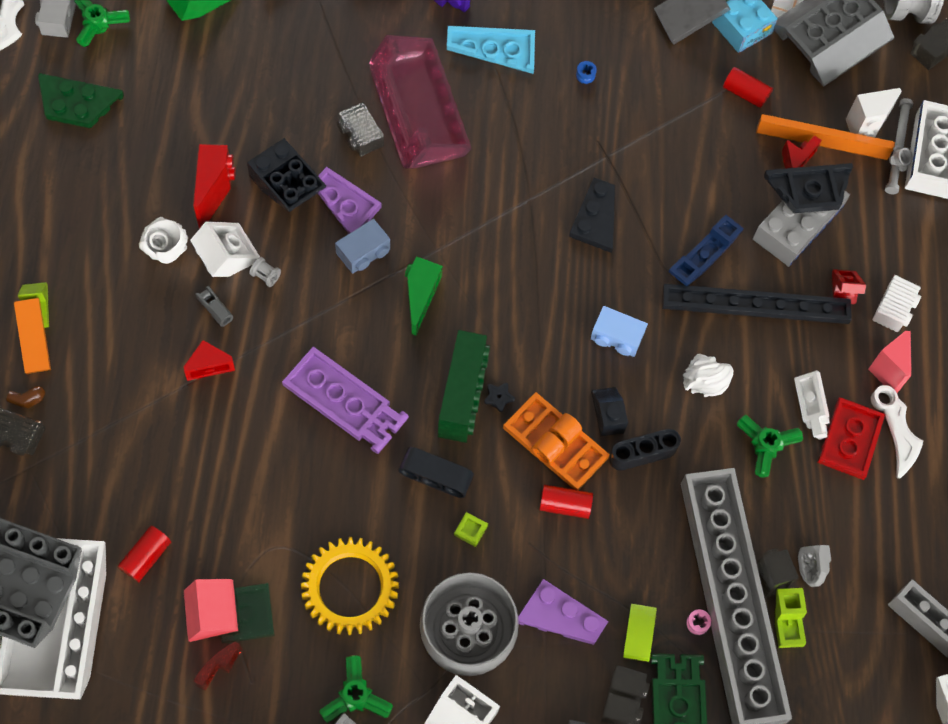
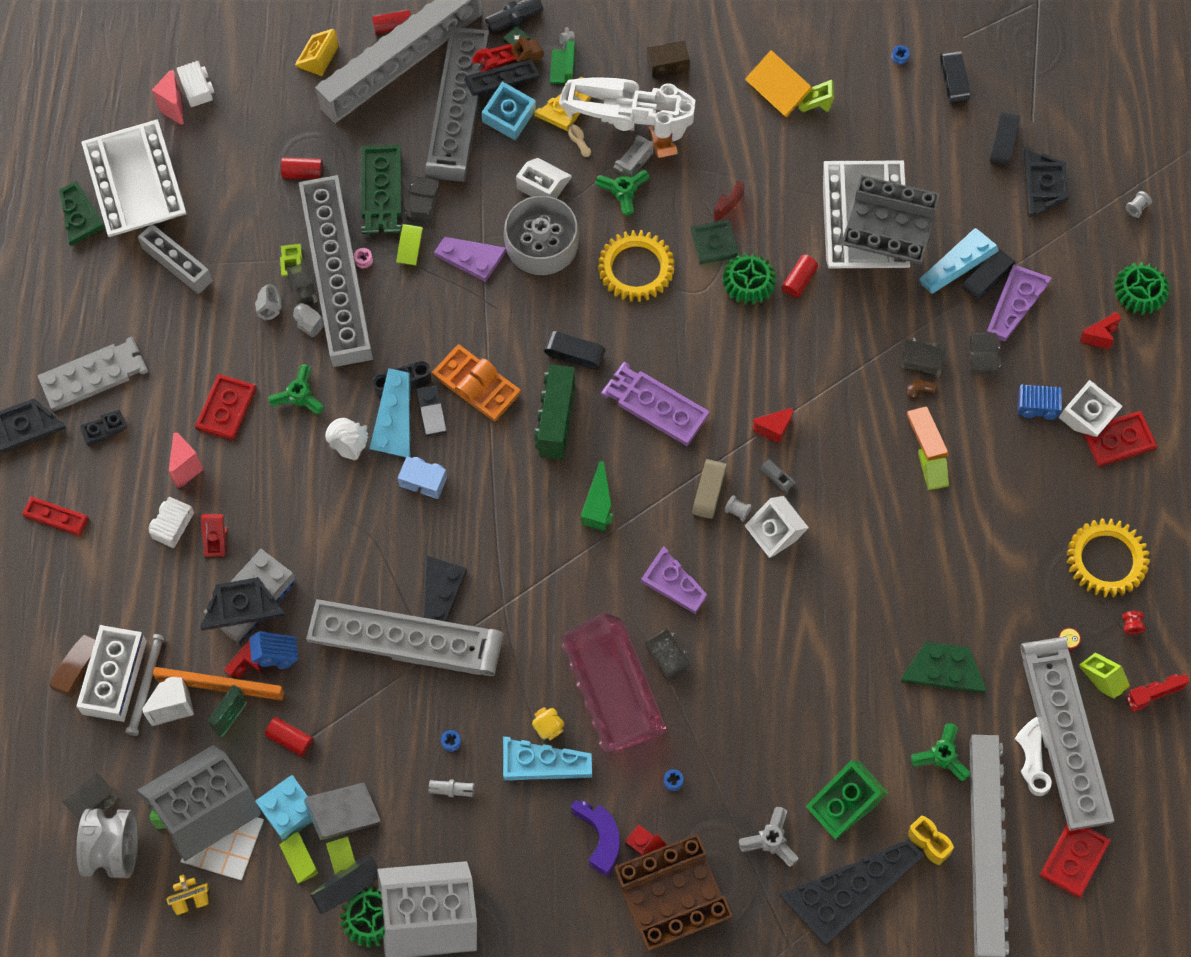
camera: 175 degrees left, 0 degrees up
(163, 240) = (831, 525): white hair -> none
(198, 547) = (763, 281): none -> green gear
(210, 608) = (740, 235): coral slope -> none
(212, 180) = (797, 589): red slope -> none
(284, 175) = (731, 594): black slope -> none
(294, 295) = (709, 489): none -> dark tan beam
(363, 246) = (652, 537): sand blue brick -> none
(367, 15) = (673, 772): none -> blue bush
(471, 529) = (543, 313): lime tile -> none
(488, 74) = (548, 723): none -> yellow head
(496, 402) = (524, 411): black plate -> none
(566, 501) = (468, 338): red brick -> none
(585, 29) = (451, 788): none -> light grey pin
(633, 162) = (406, 637): none -> light grey hinge
(653, 399) = (393, 419): none -> medium azure wing
(707, 251) = (343, 558): dark blue slope -> none
(756, 303) = (300, 513): black plate -> none
(764, 535) = (308, 319): none -> light grey rock
(770, 155) = (273, 649): none -> blue brick
(813, 403) = (256, 429): white hinge -> none
(815, 98) = (227, 711): none -> clear green tile
(901, 157) = (147, 659): light grey plate -> none
(906, 443) = (180, 408): white piece -> none

